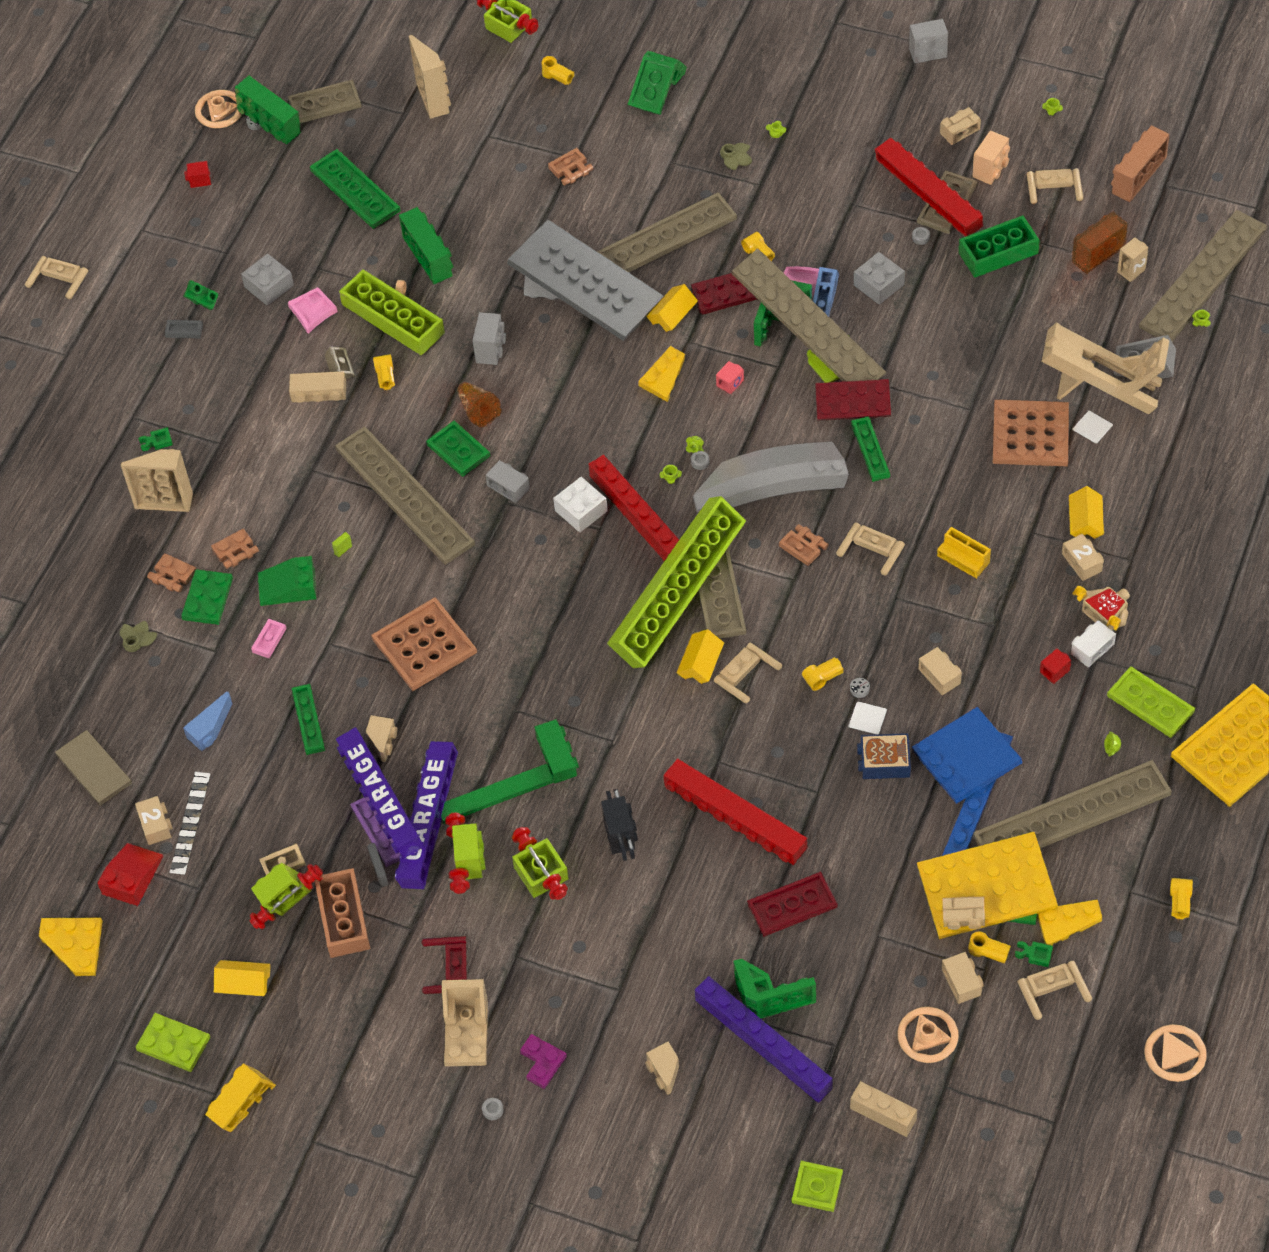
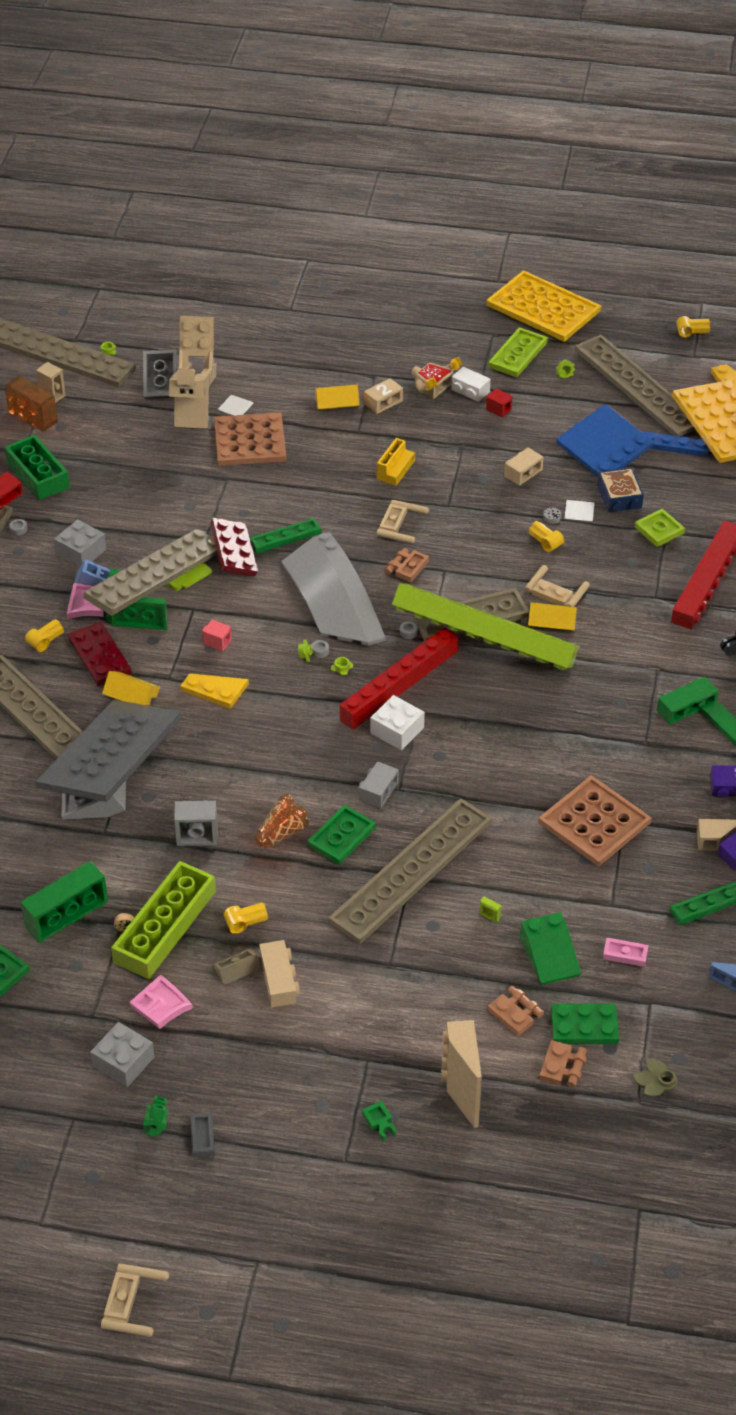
camera: 105 degrees left, 10 degrees down
(819, 783) = (659, 527): none -> lime plate

